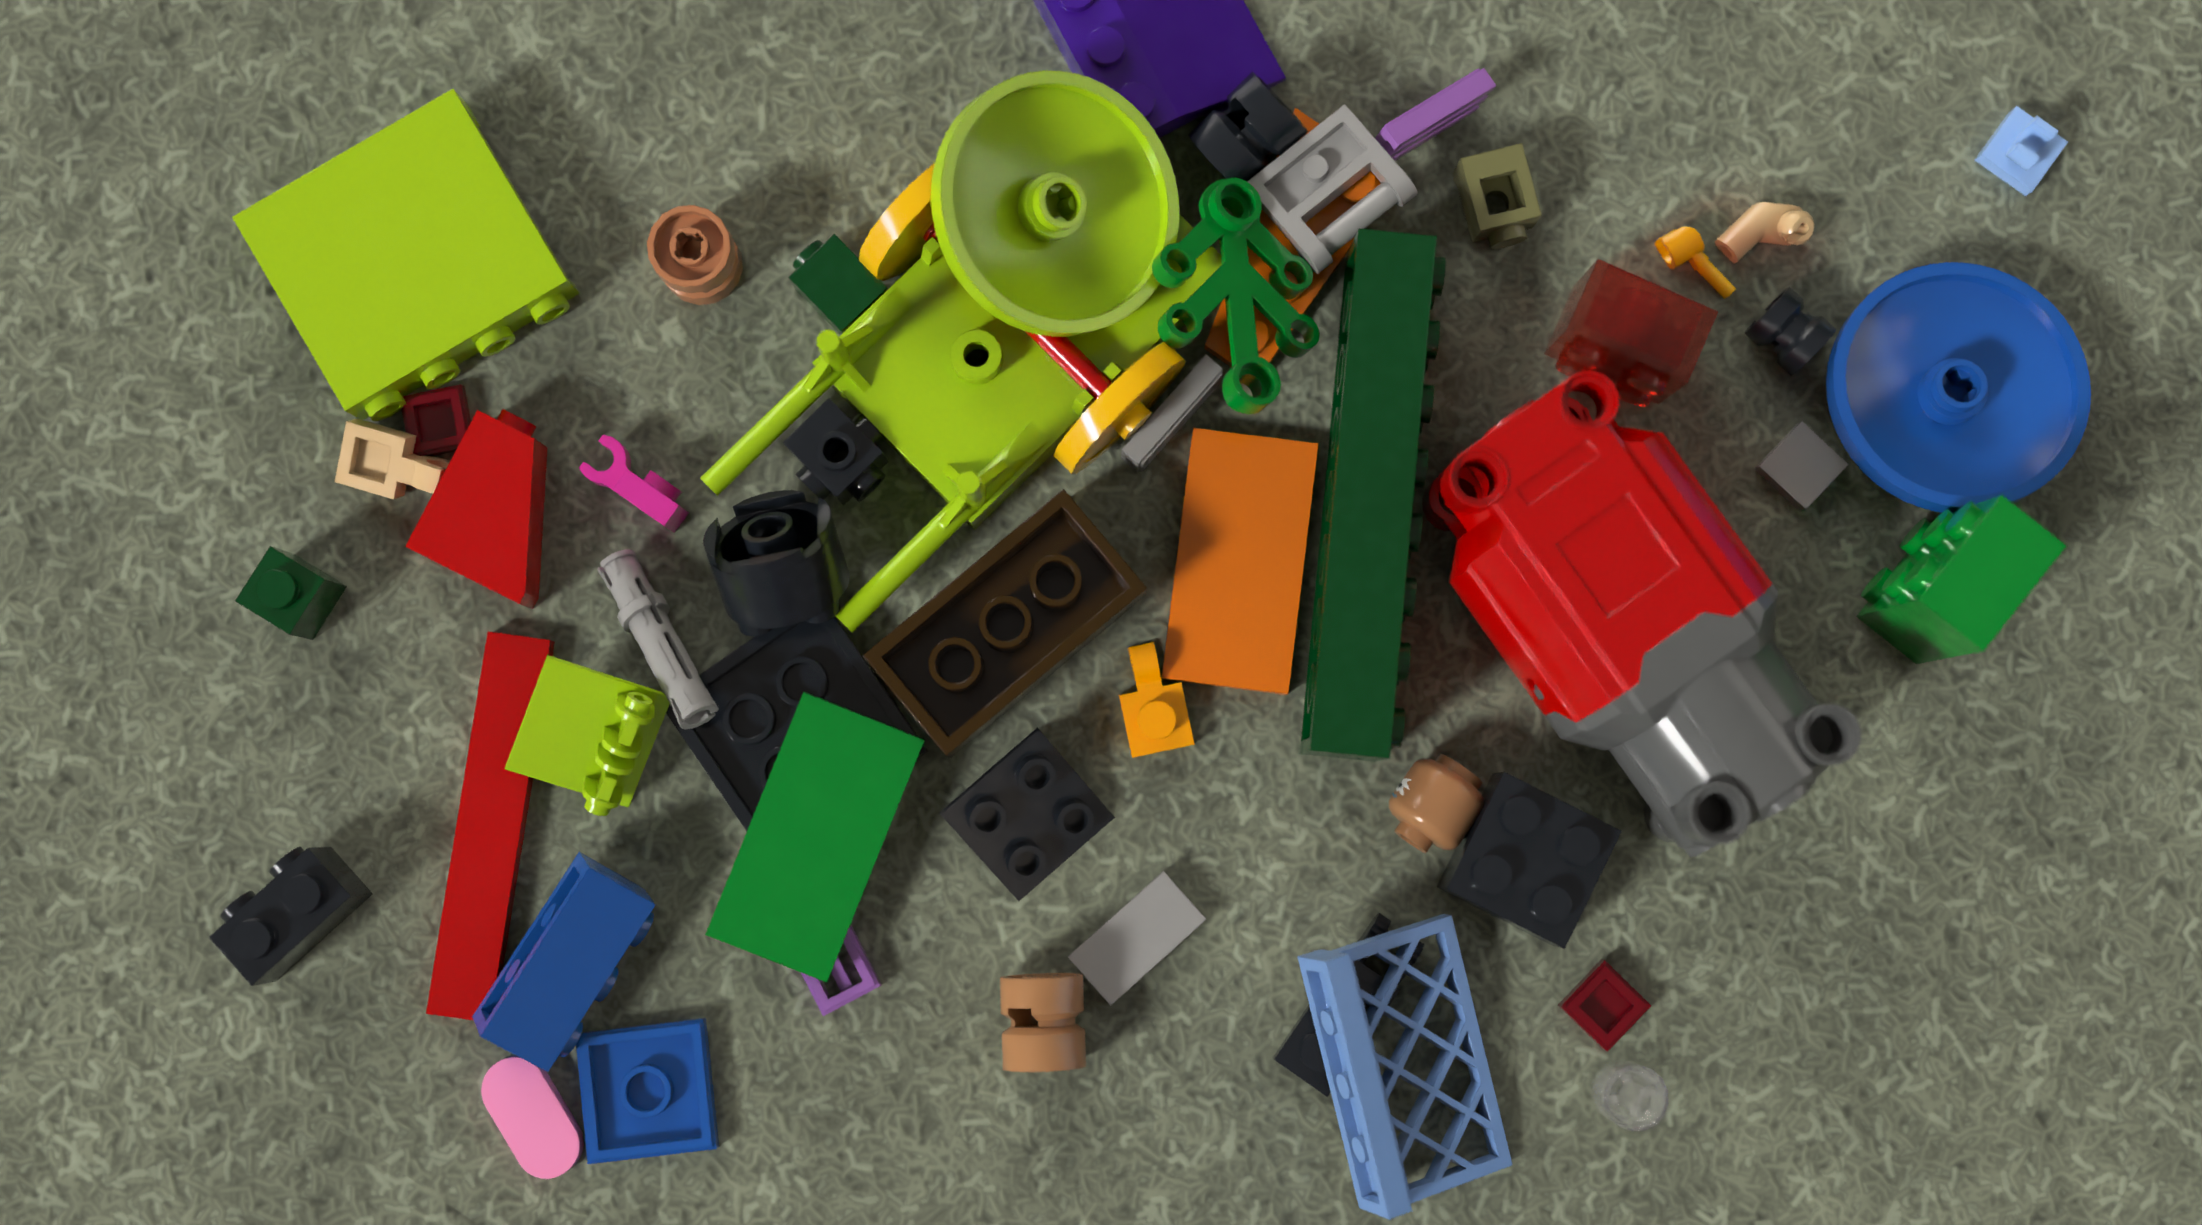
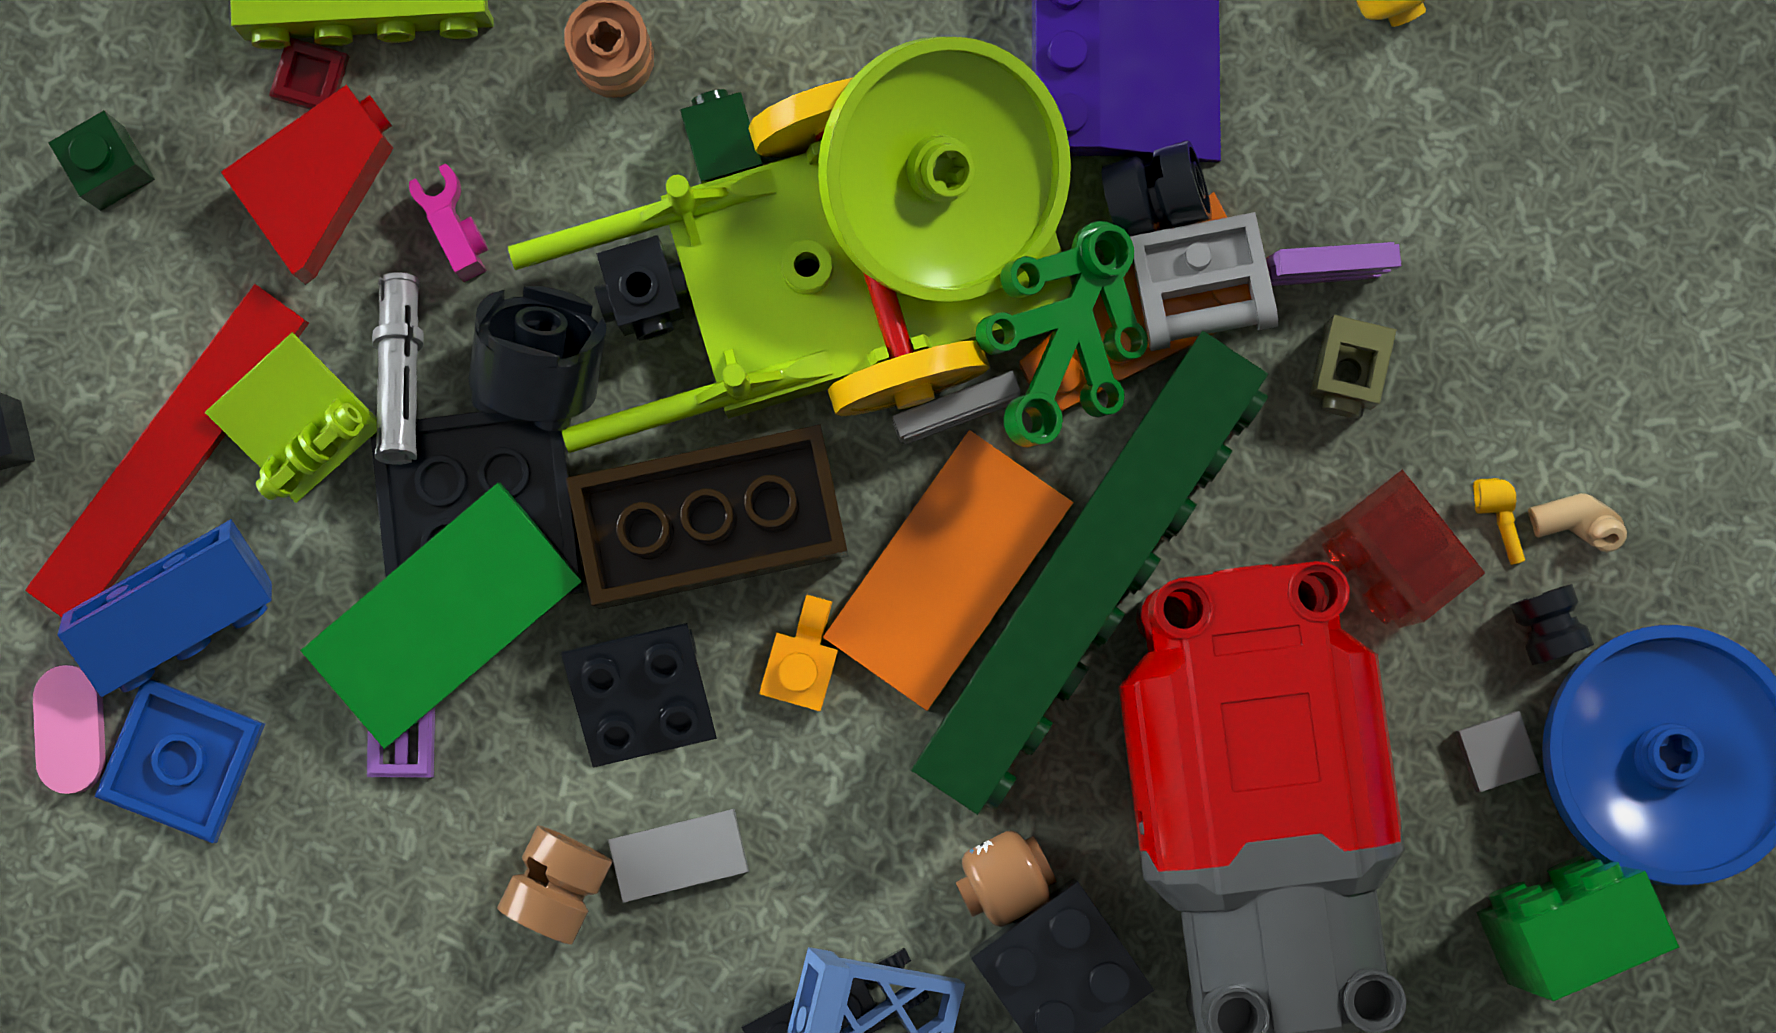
camera: 30 degrees right, 0 degrees up
(384, 461) = (243, 87): tan plate -> none

